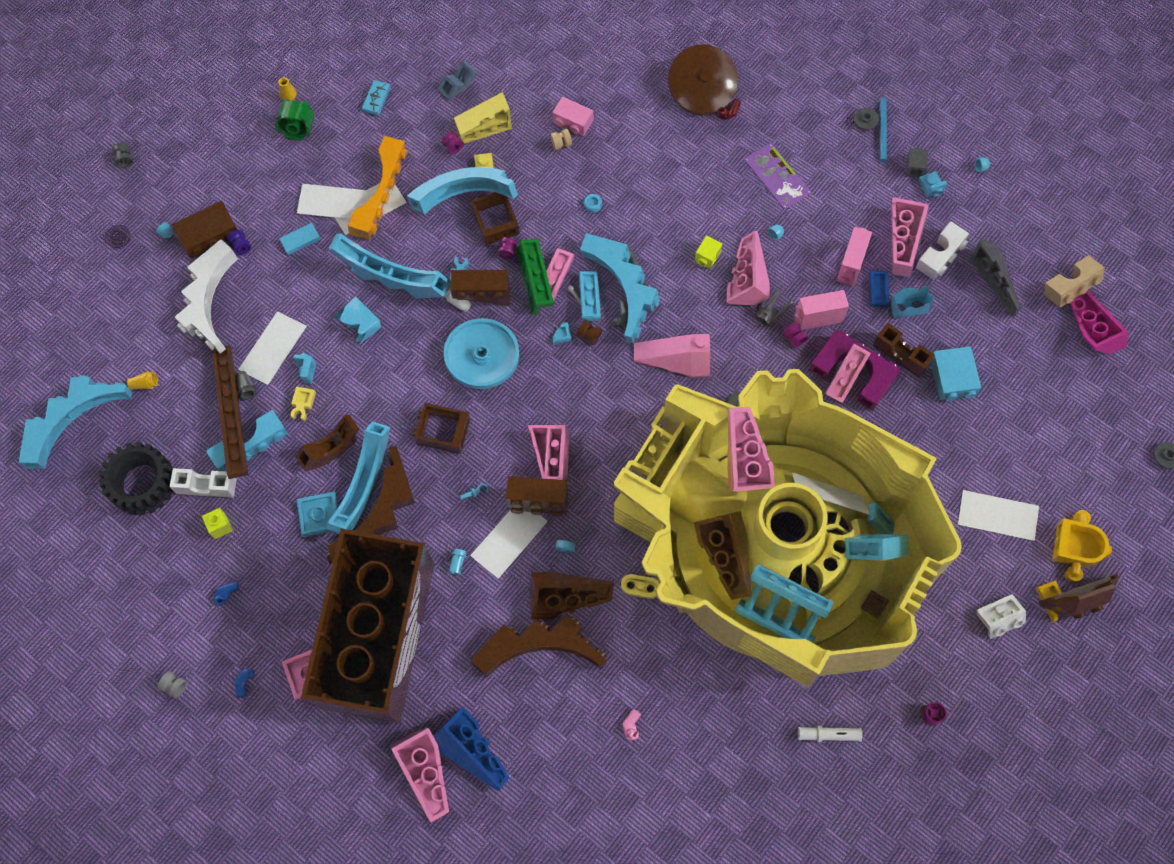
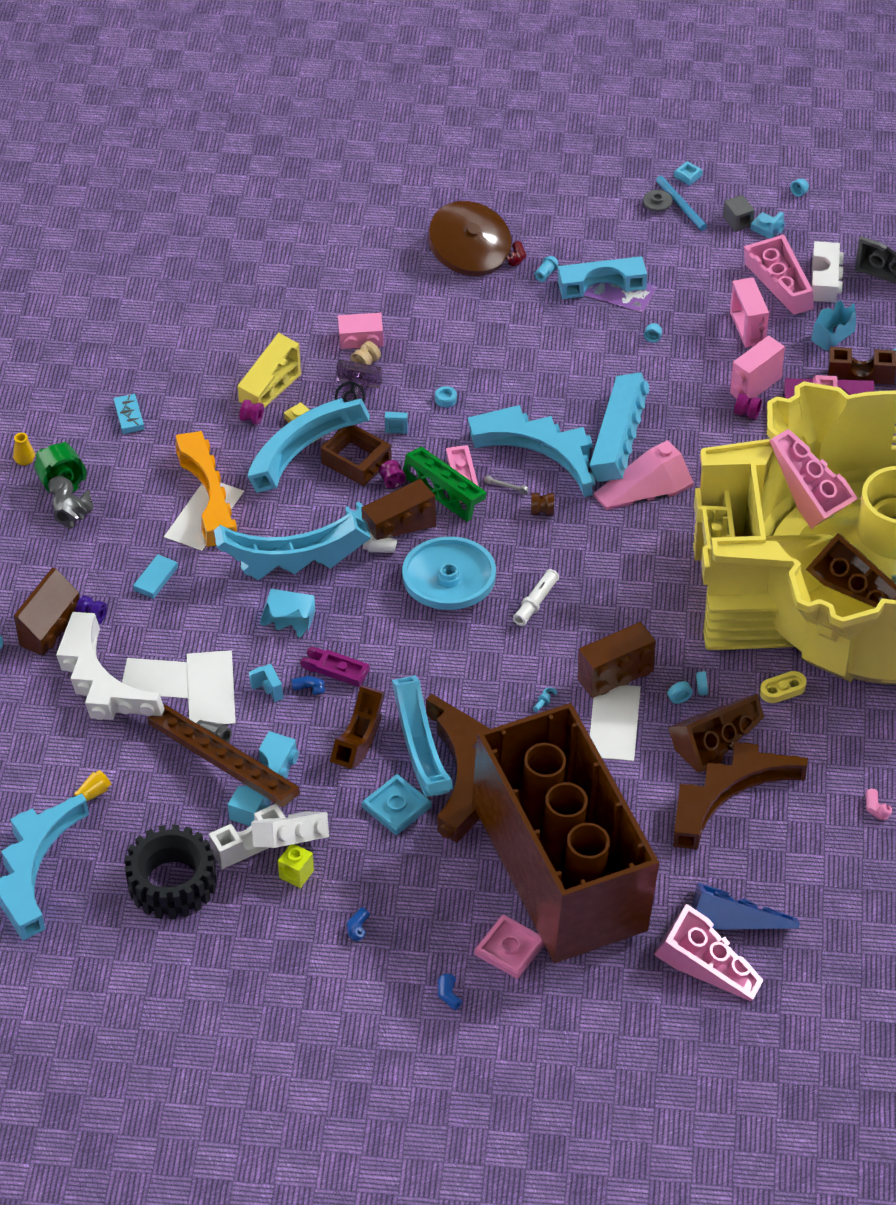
camera: 35 degrees left, 20 degrees down
(172, 684) = (373, 1034): light grey wheel -> none
(209, 498) = (291, 830): none -> white arch
(244, 318) = (157, 676): none -> white sticker
(280, 149) = (66, 505): none -> dark grey animal
(302, 400) = (291, 713): light yellow plate -> none
(331, 201) = (161, 527): white sticker -> none
(334, 384) = (307, 682): none -> blue arm
(359, 382) = (335, 666): none -> magenta hinge
(455, 84) = (210, 354): sand blue slope -> none
(463, 423) = (457, 644): reddish brown window -> none
(529, 406) = (532, 603): none -> white pin
(540, 160) = (357, 379): none -> clear purple piece
(540, 207) = (396, 422): none -> medium azure tile
(552, 450) = (590, 614): bright pink wedge -> none
(562, 334) = (514, 521): medium azure tile -> none
(586, 548) = (702, 683): none -> medium azure tile
(589, 296) = (514, 473): medium azure tile -> none
(622, 320) = (565, 477): dark grey arm -> none
(686, 301) = (619, 427): none -> medium azure brick
(708, 252) = (601, 379): neon yellow brick -> none
(745, 132) = (549, 265): none -> medium azure pin
(750, 278) = (667, 384): bright pink wedge -> none
(754, 156) = (625, 272): none -> medium azure arch
(766, 314) = (704, 404): dark grey plant -> none
(879, 289) = (792, 333): blue tile -> none
(908, 106) = (688, 173): none -> medium azure tile

